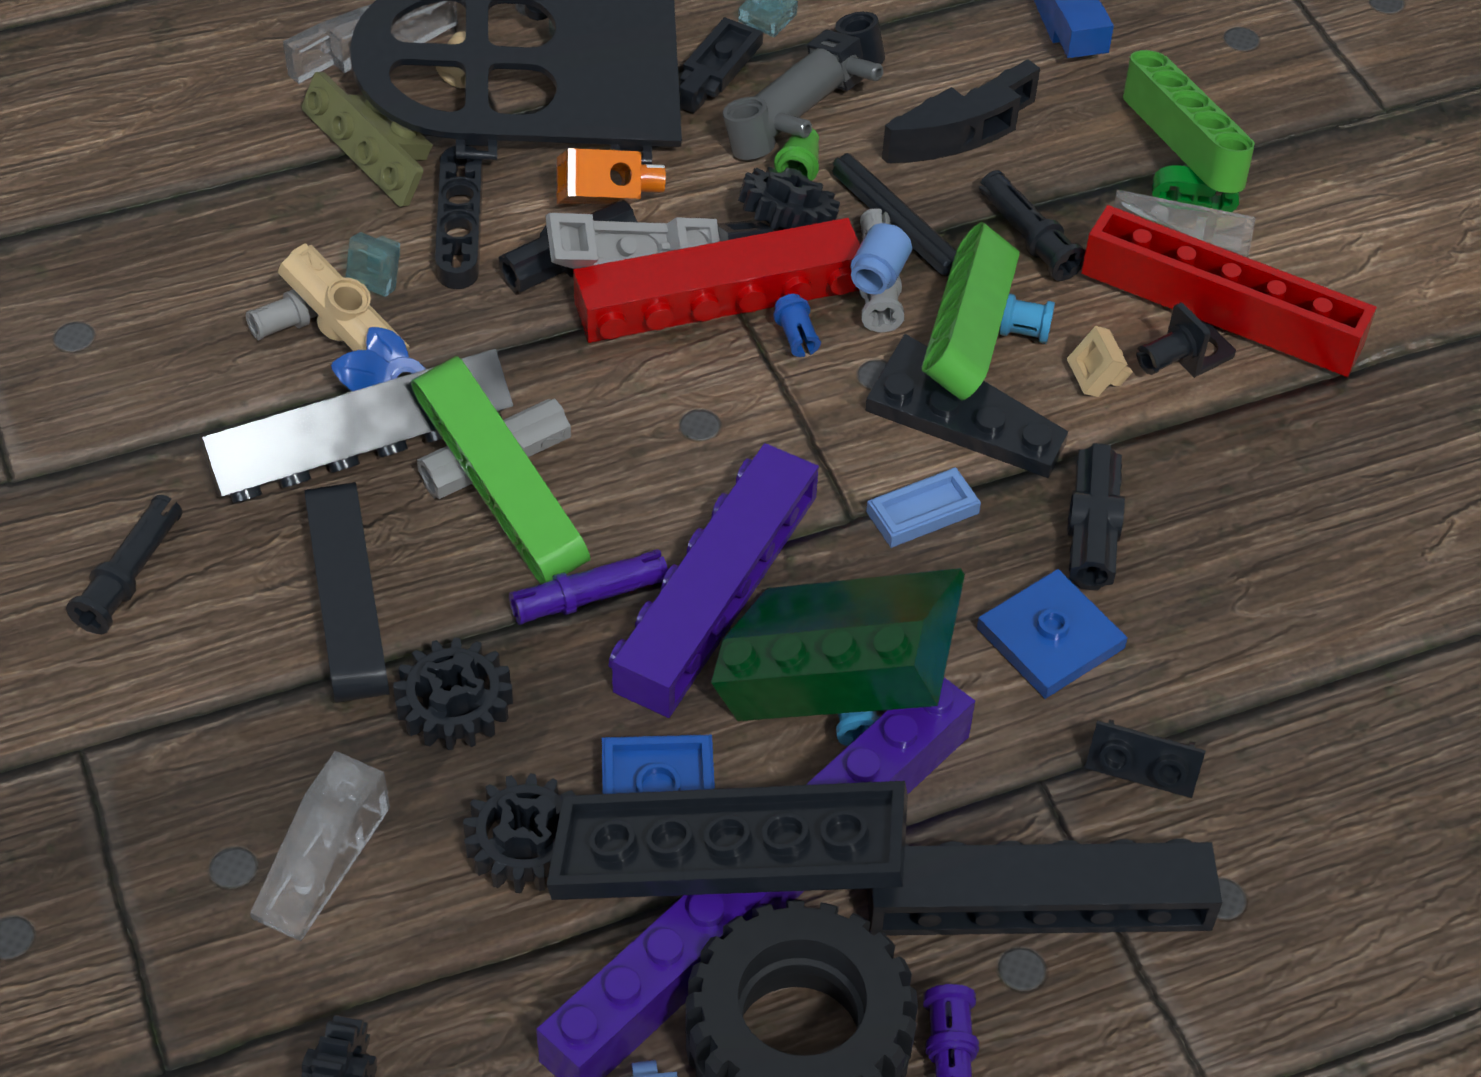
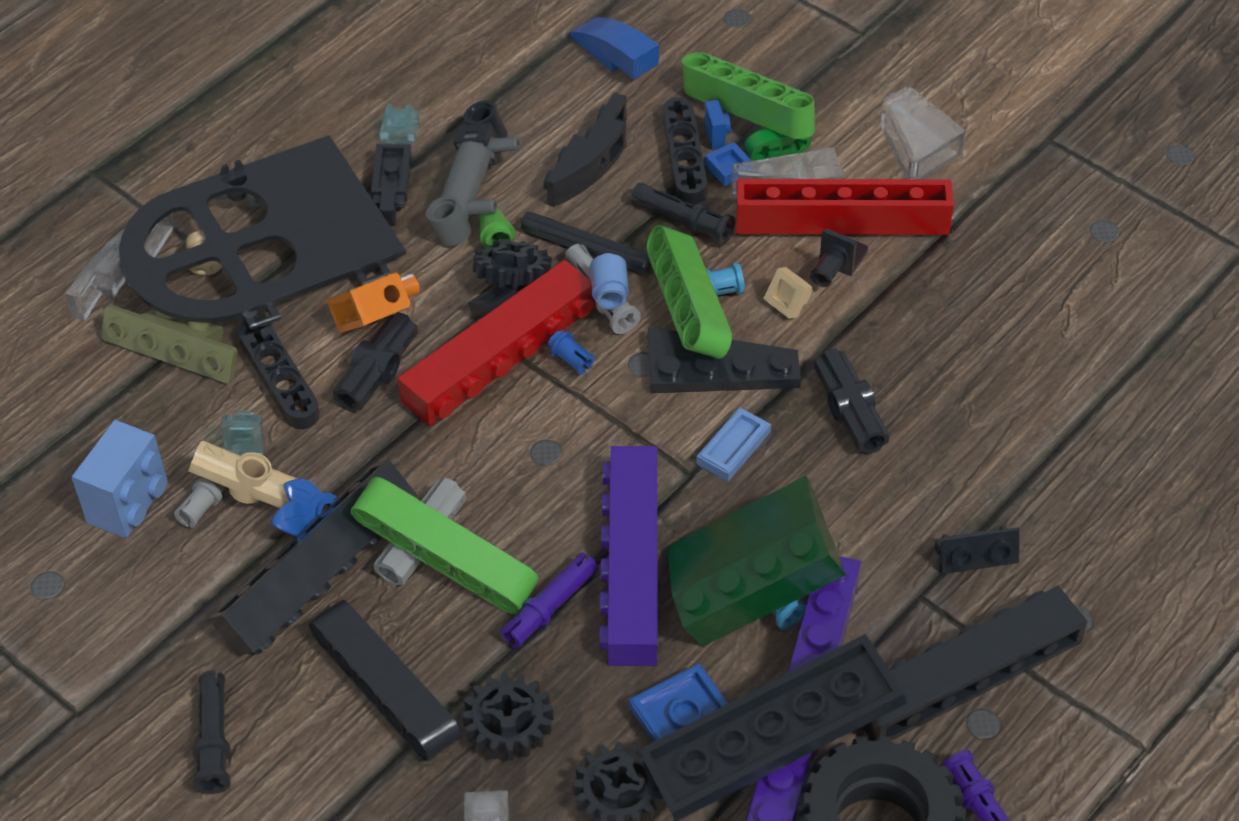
camera: 25 degrees left, 0 degrees up
(206, 252) = (120, 479): none -> medium blue brick
(581, 242) = (403, 351): light grey slope -> none
(1051, 633) = (869, 493): blue plate -> none
(1078, 157) = (684, 150): none -> black beam
(1109, 181) = (721, 161): none -> blue plate
(1134, 142) = (716, 124): none -> blue plate
(1382, 247) = (920, 133): none -> clear slope

